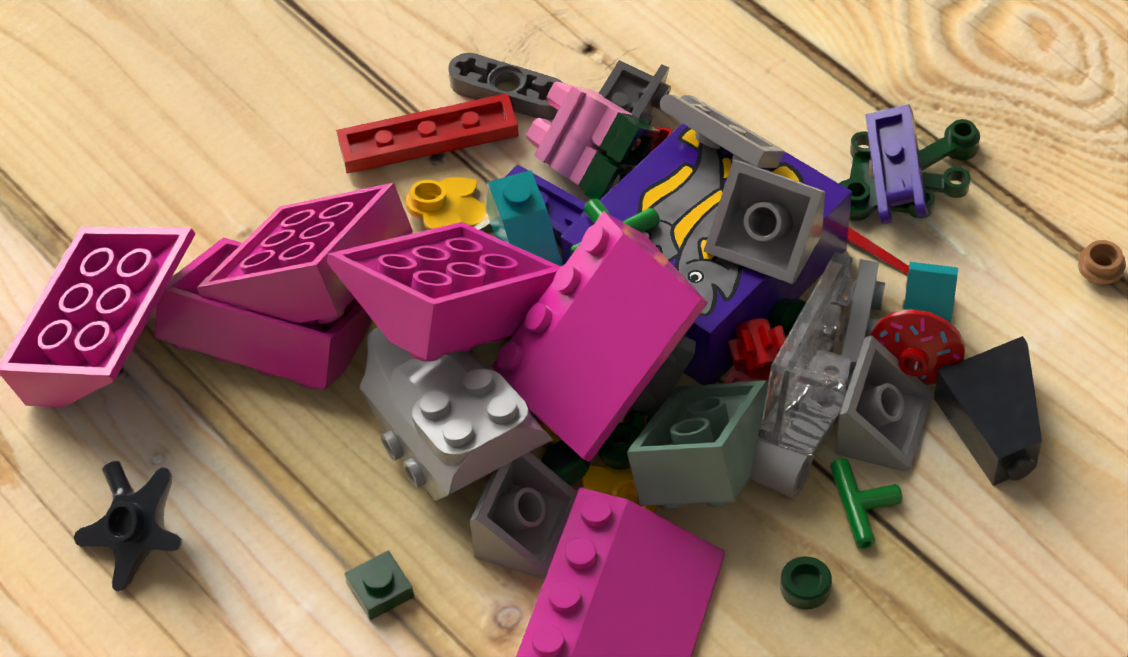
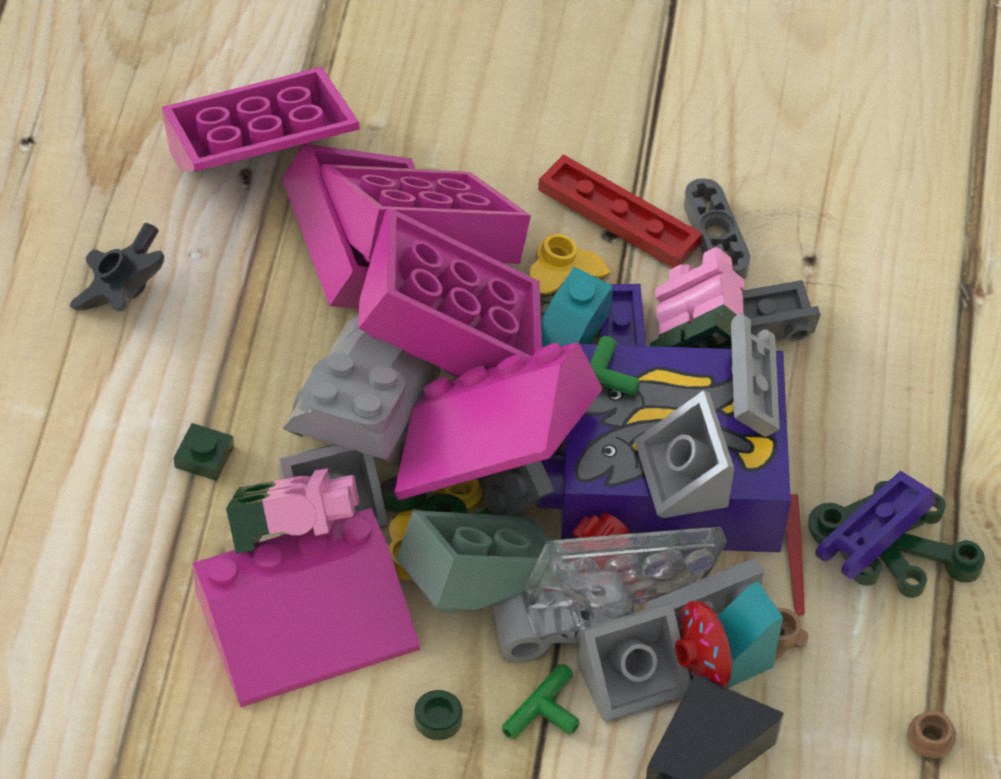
camera: 45 degrees right, 0 degrees up
(534, 543) = (290, 507): none -> bright pink hips

